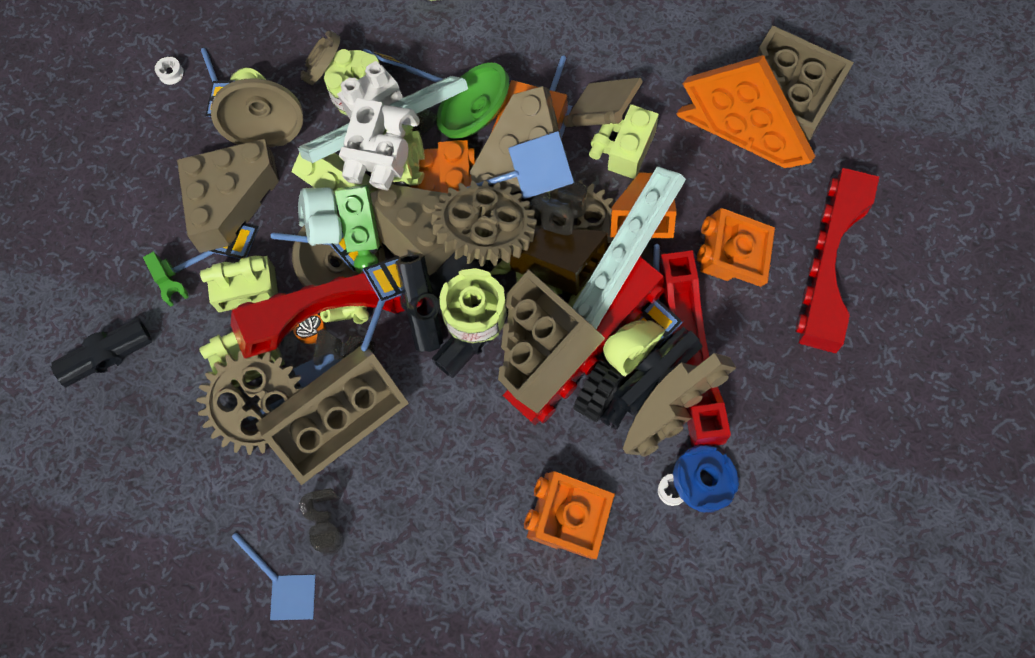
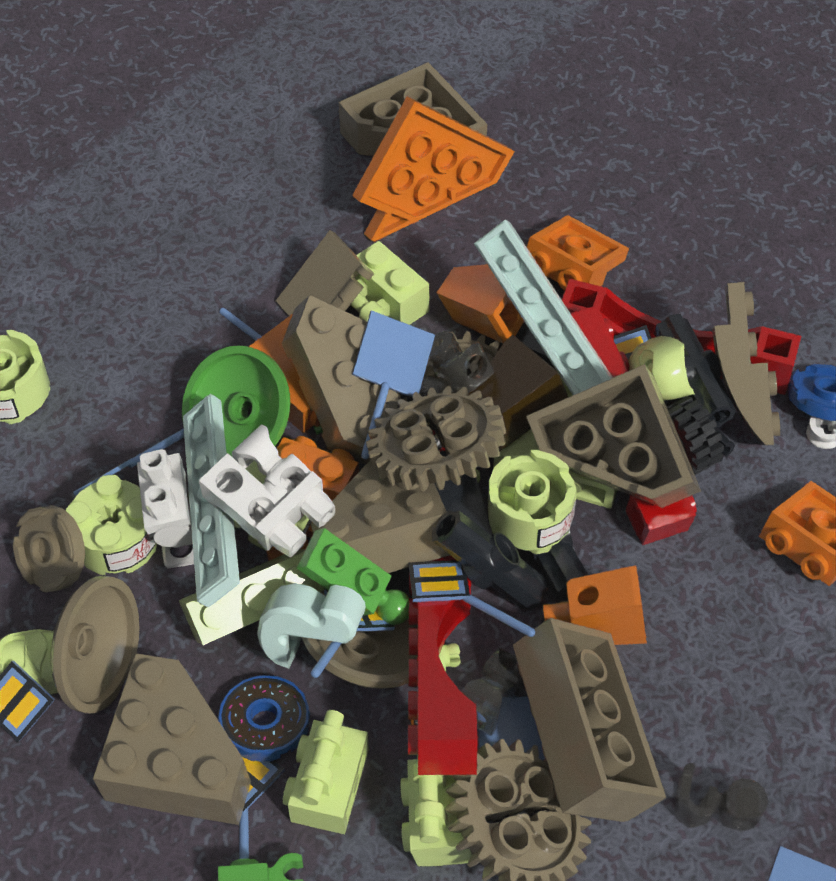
camera: 70 degrees left, 15 degrees down
(259, 220) = (258, 695): none -> tile
(427, 391) = (604, 603): none -> orange torso
(826, 315) = (690, 218): red arch -> none

